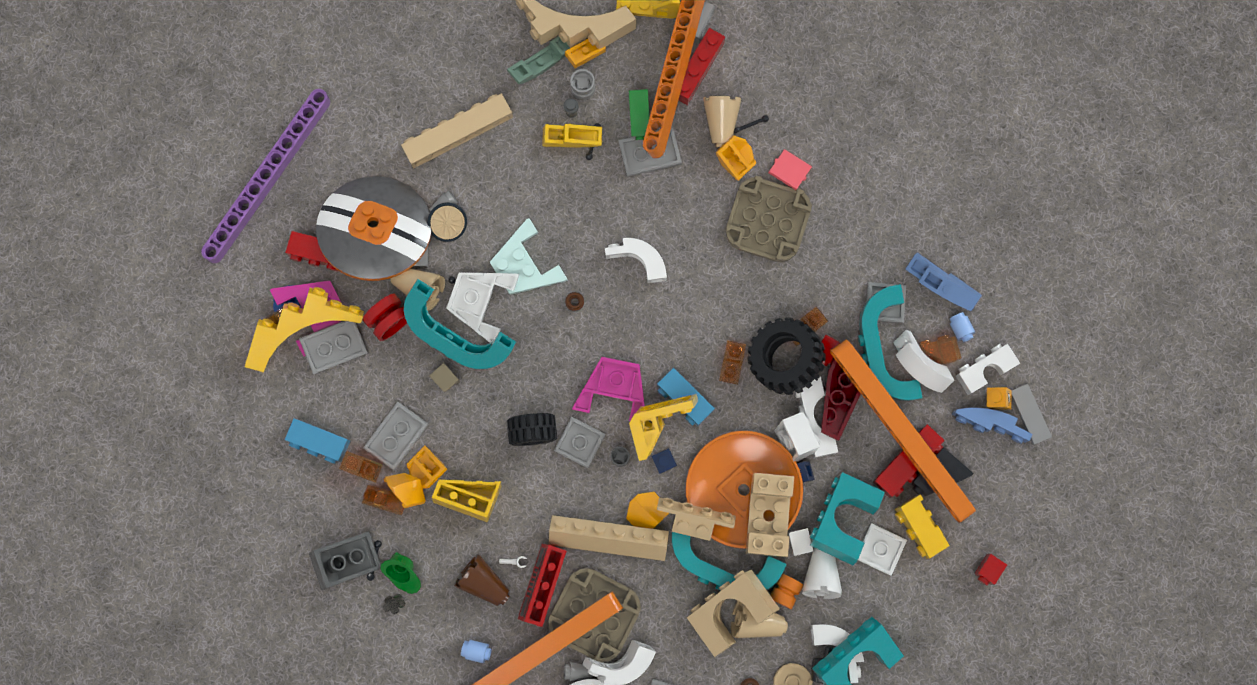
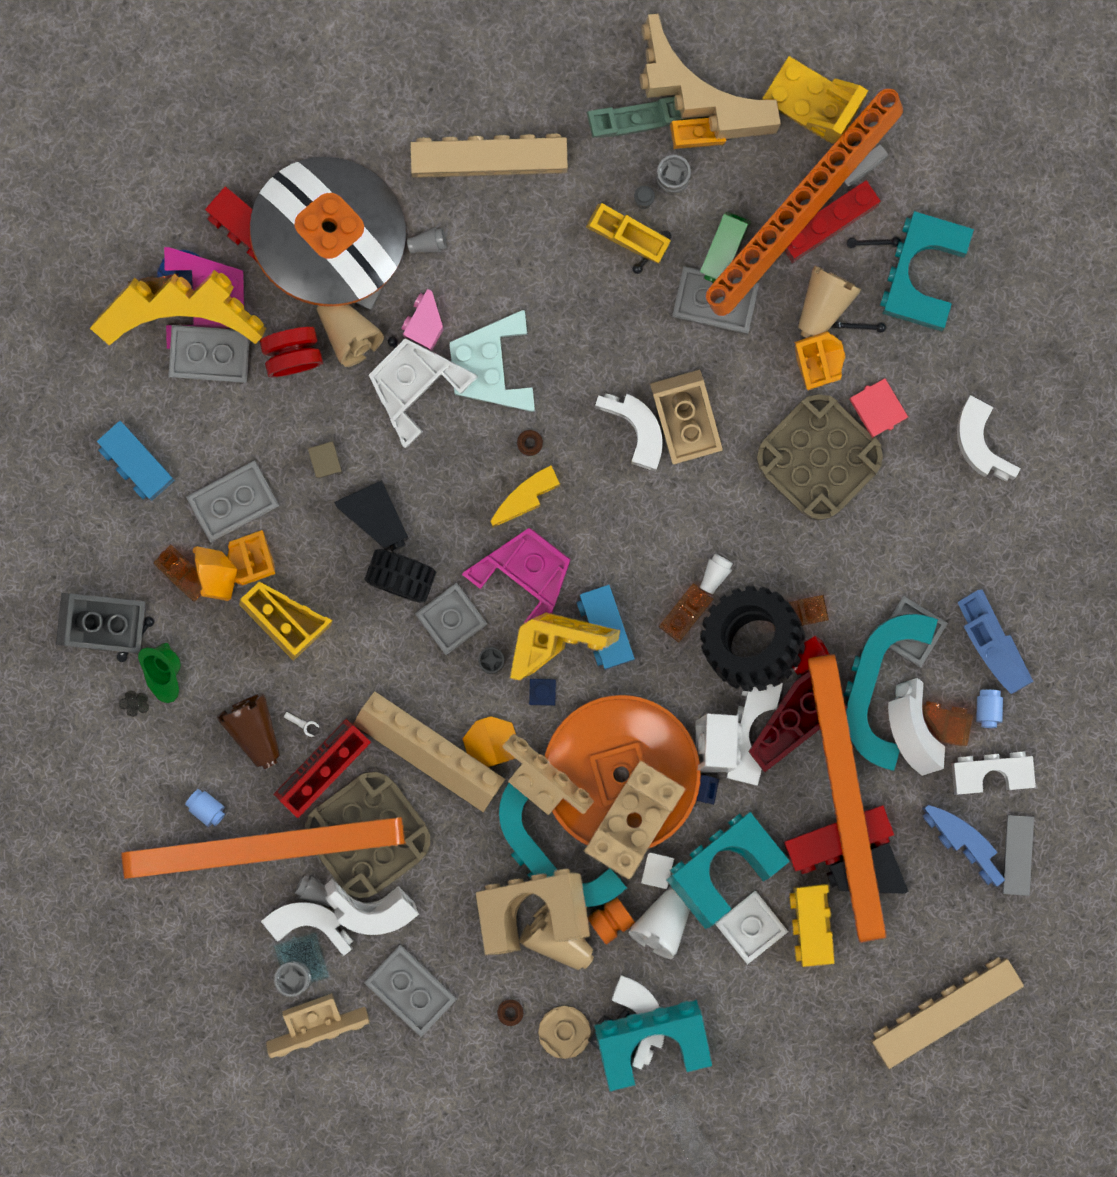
camera: 25 degrees right, 5 degrees up
(265, 185) = (220, 111): medium lavender beam -> none
(361, 466) = (173, 519): clear orange slope -> none
(447, 222) = (421, 267): tan wheel -> none
(447, 341) = (350, 417): teal arch -> none
(468, 257) = (425, 324): none -> bright pink slope
(495, 398) = (375, 515): none -> black slope
(589, 337) = (525, 496): none -> yellow slope
(669, 234) = (686, 416): none -> tan slope
(719, 74) = (852, 243): none -> black hinge
(739, 326) = (716, 572): none -> white cone
(773, 93) = (903, 299): none -> teal arch
(863, 163) = (972, 443): none -> white arch
(990, 570) = (869, 1016): red brick -> none
(999, 398) = (988, 817): light orange brick -> none
(1039, 542) = (947, 1012): none -> tan brick

